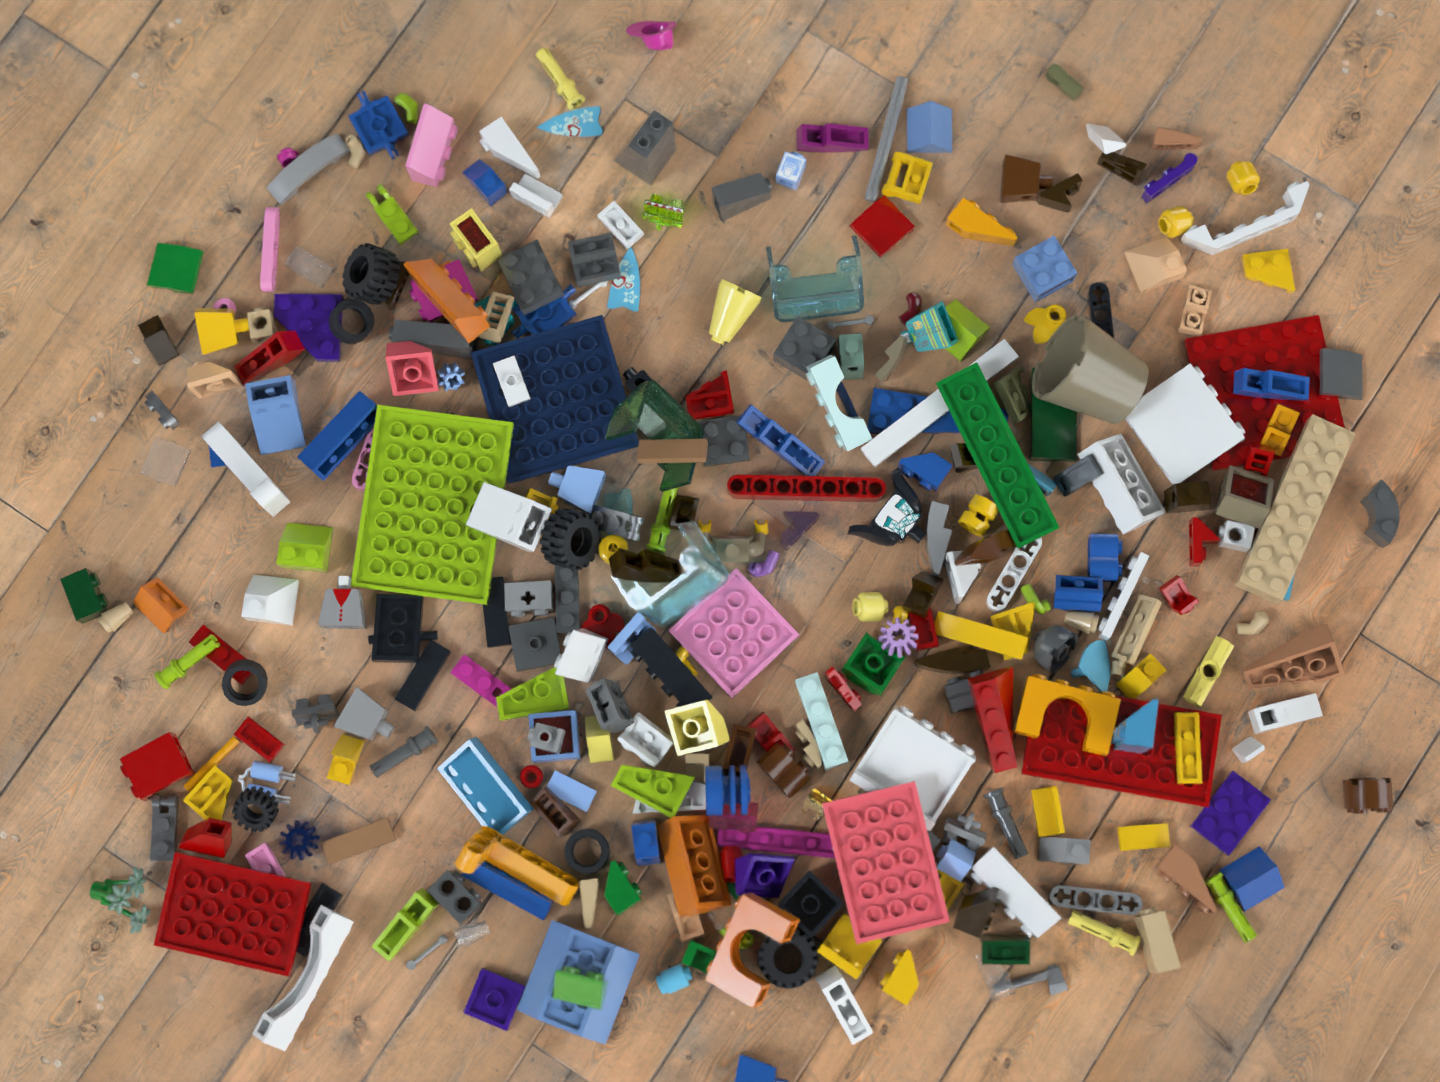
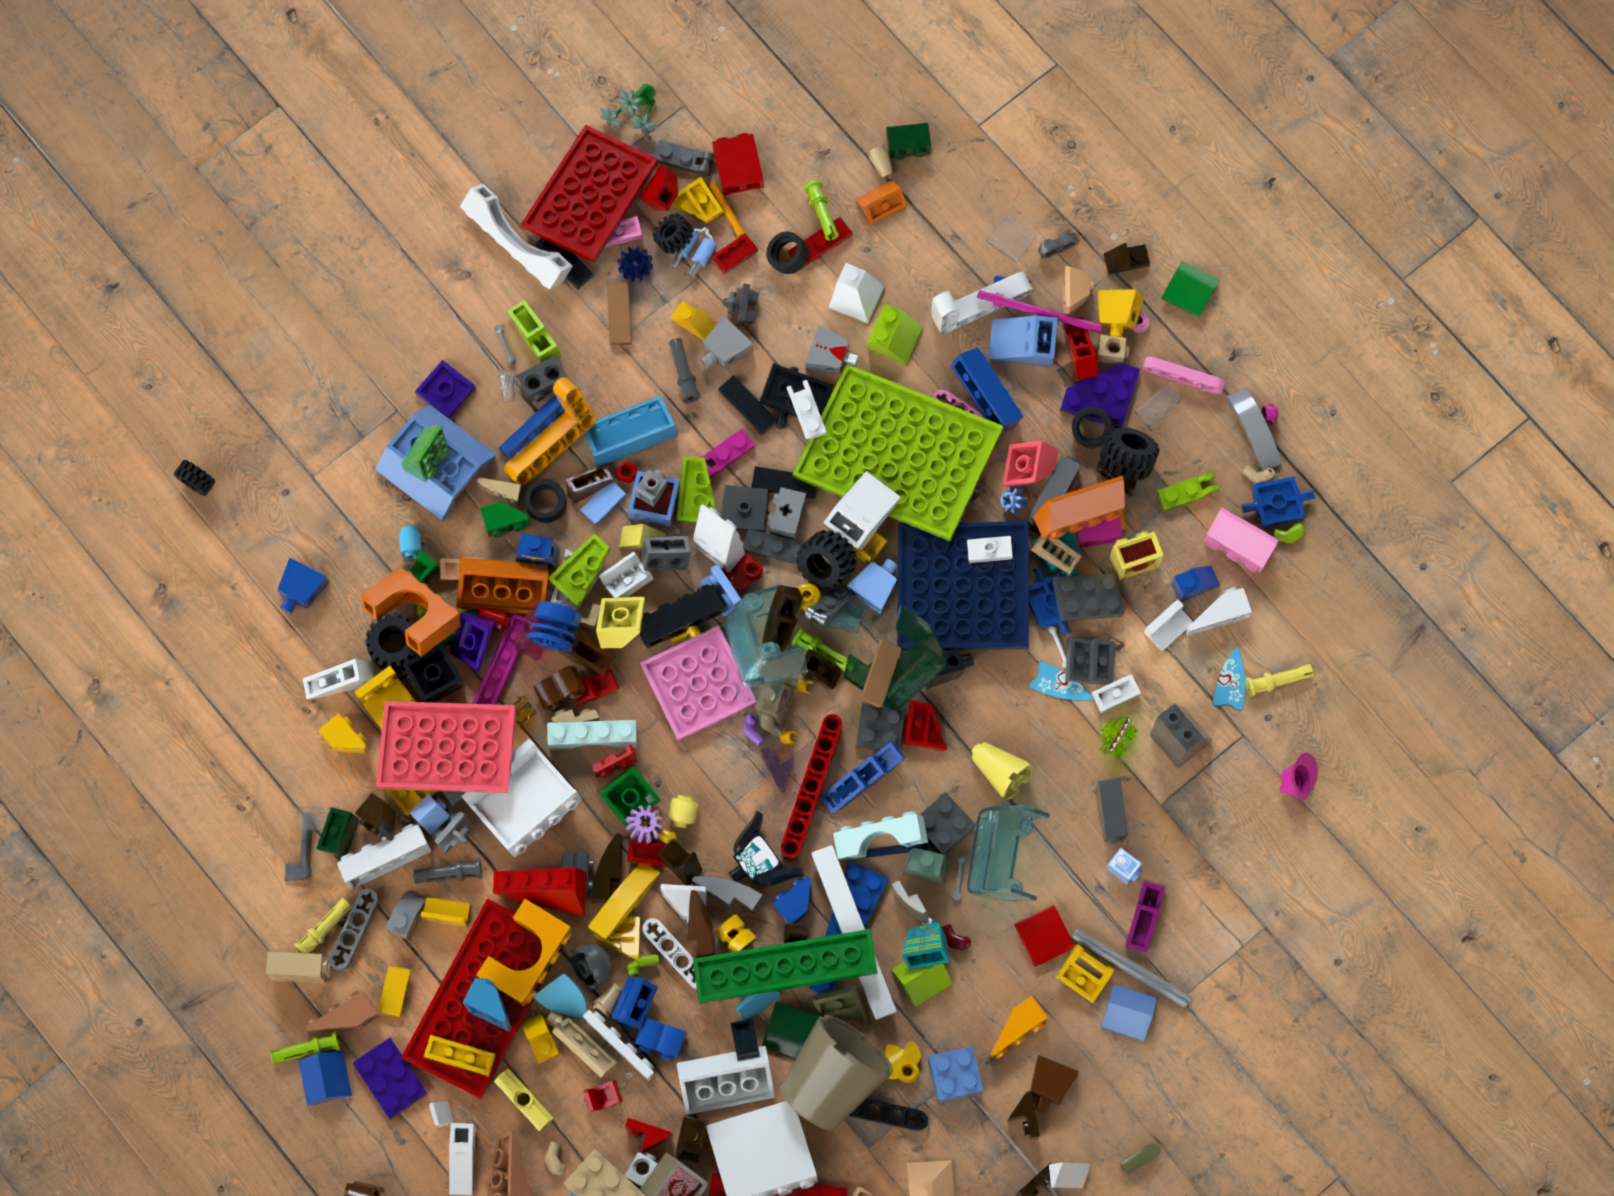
camera: 100 degrees right, 5 degrees down
(240, 447) = (999, 299): none -> dark pink bar
(415, 608) = (807, 412): none -> white hinge

